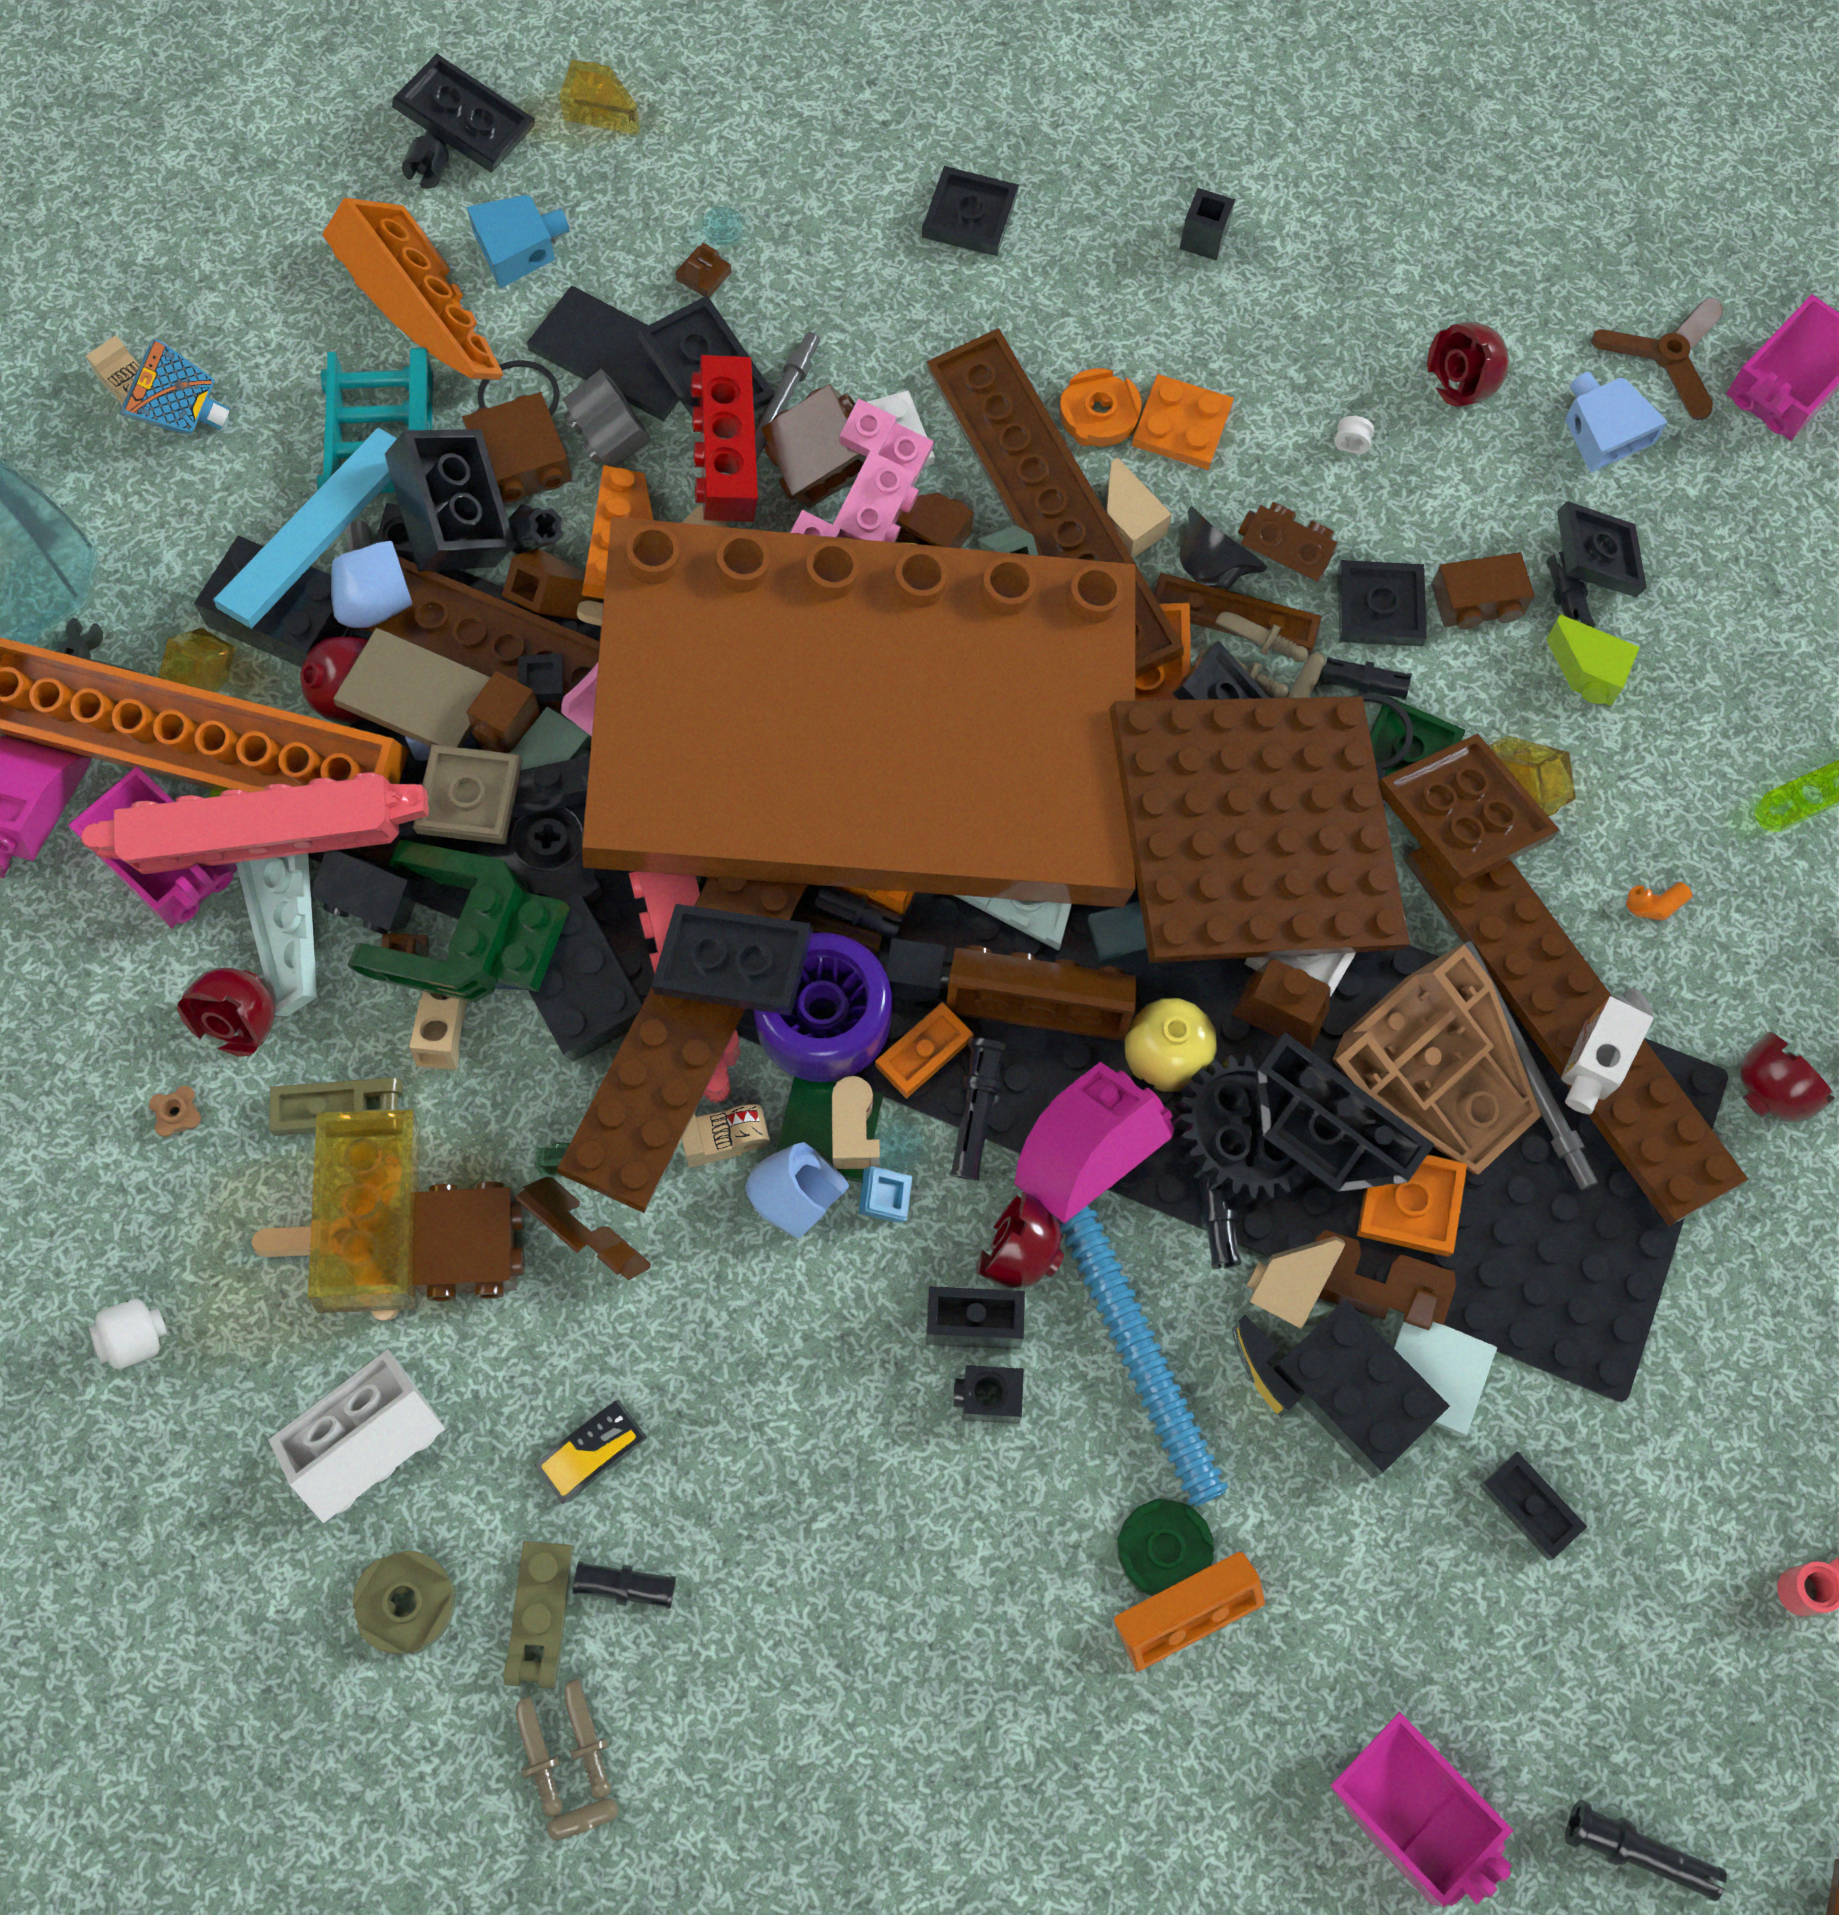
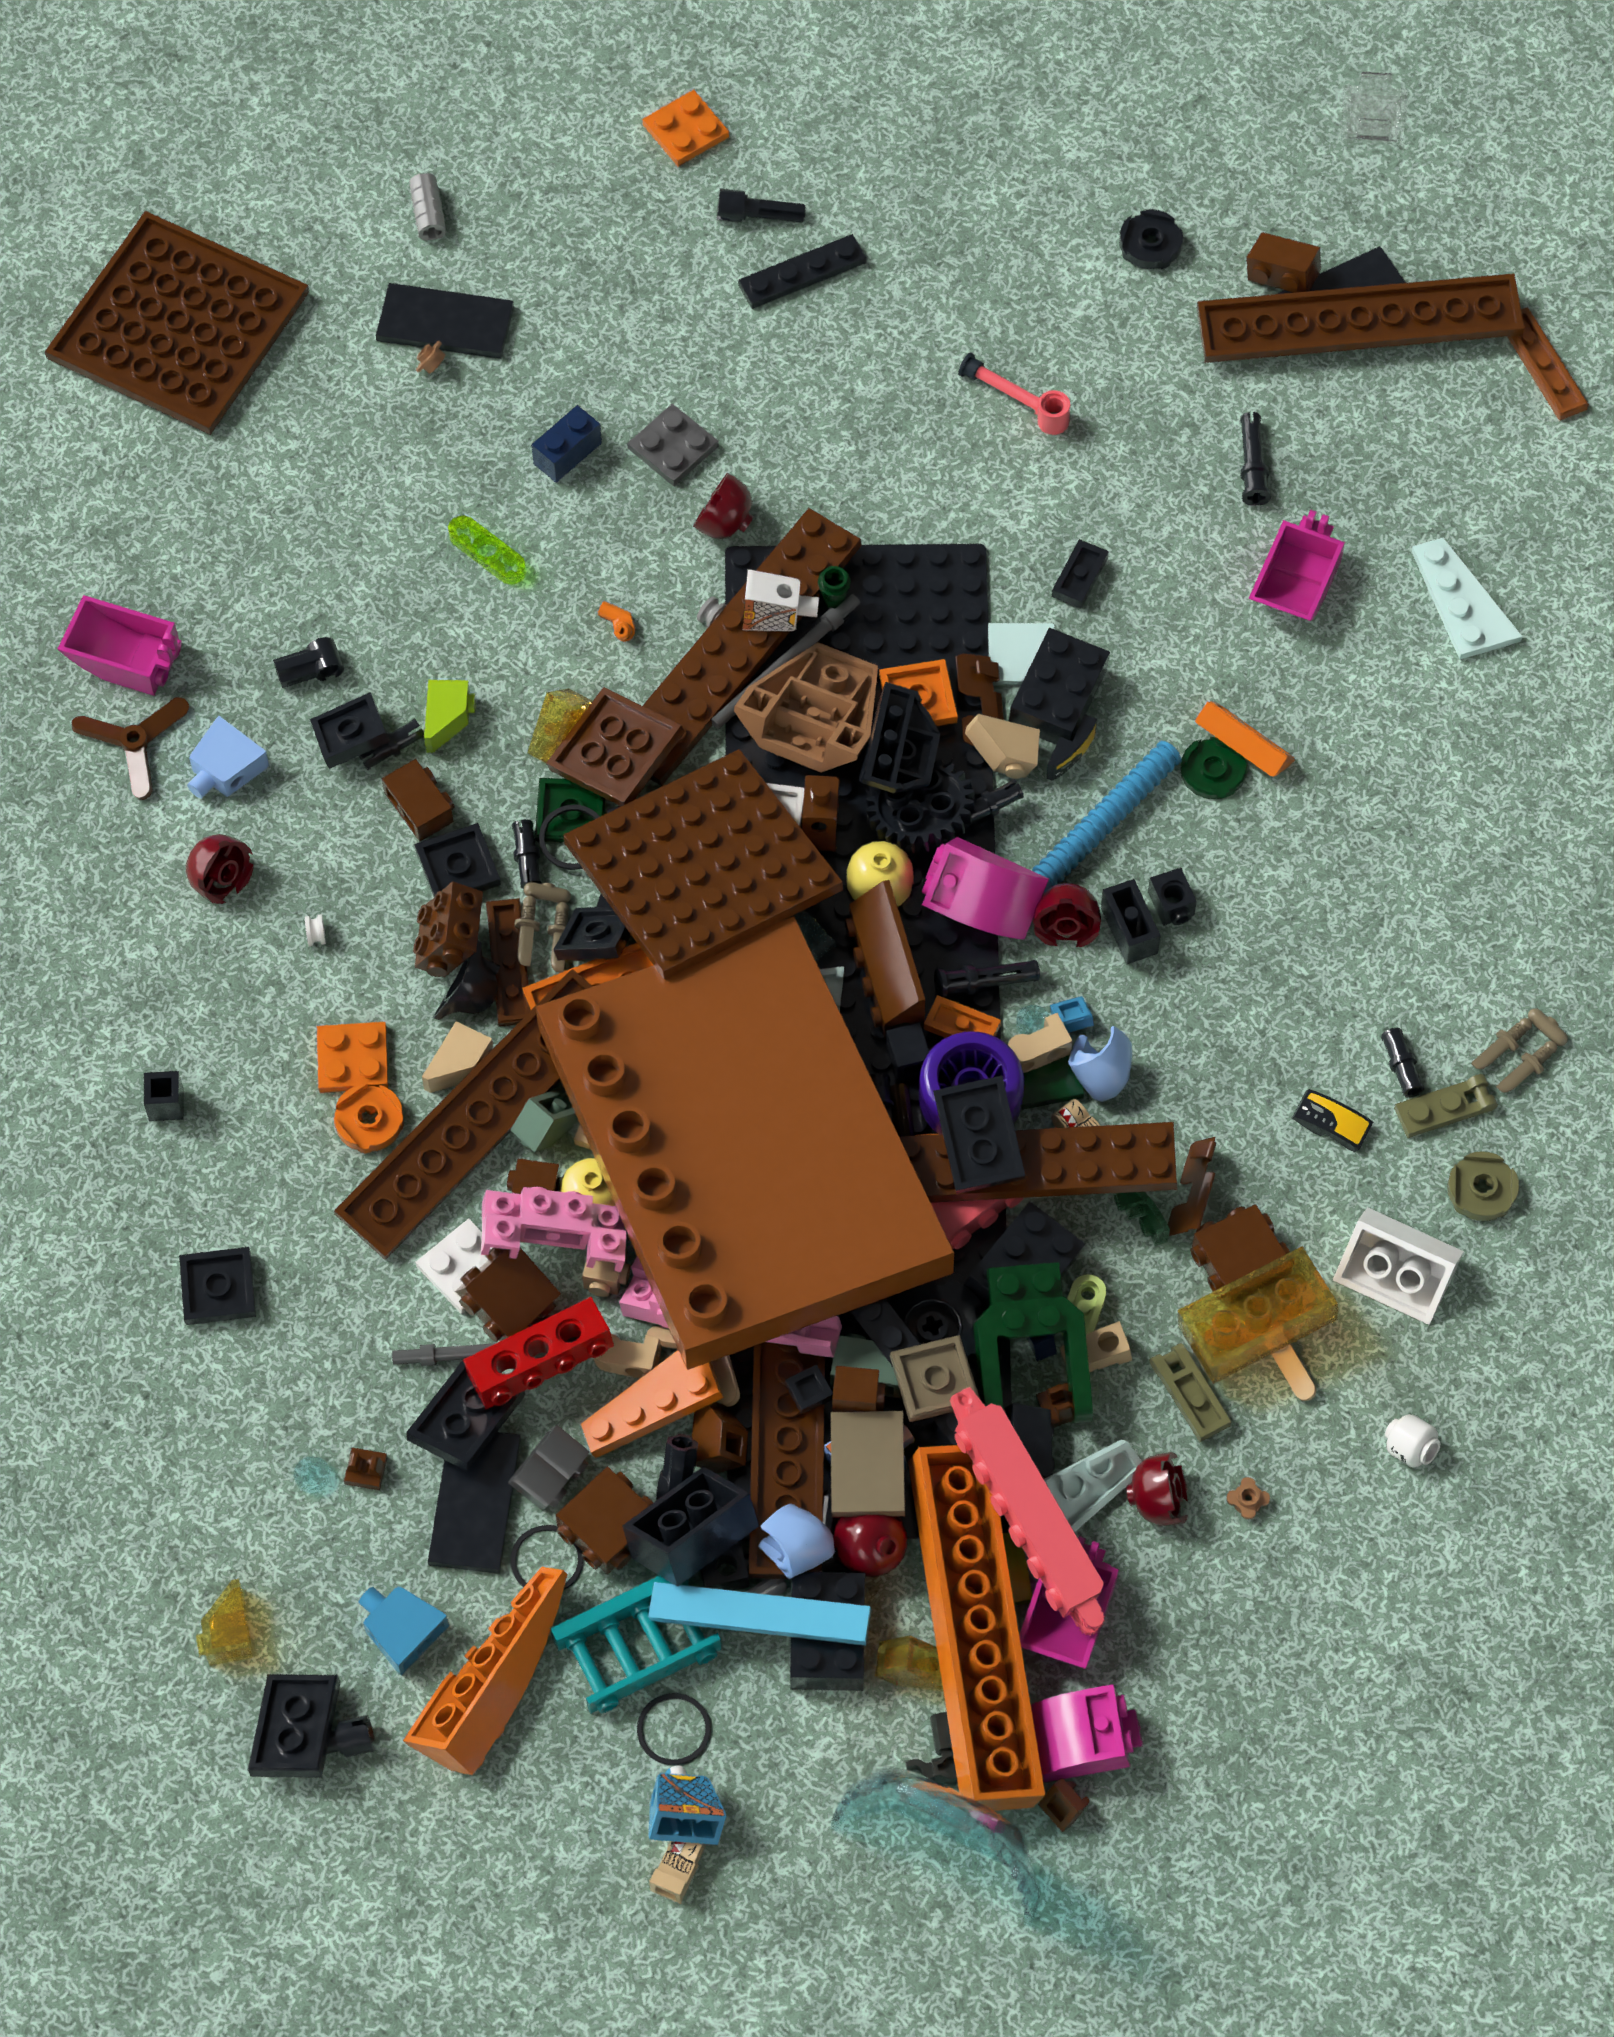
camera: 110 degrees left, 5 degrees down
(274, 471) = (674, 1761): none -> black piece
(503, 1034) = (1090, 1308): none -> yellowish green plate
(1613, 1154) = (834, 585): none -> dark green cone
(1711, 554) = (317, 661): none -> black piece

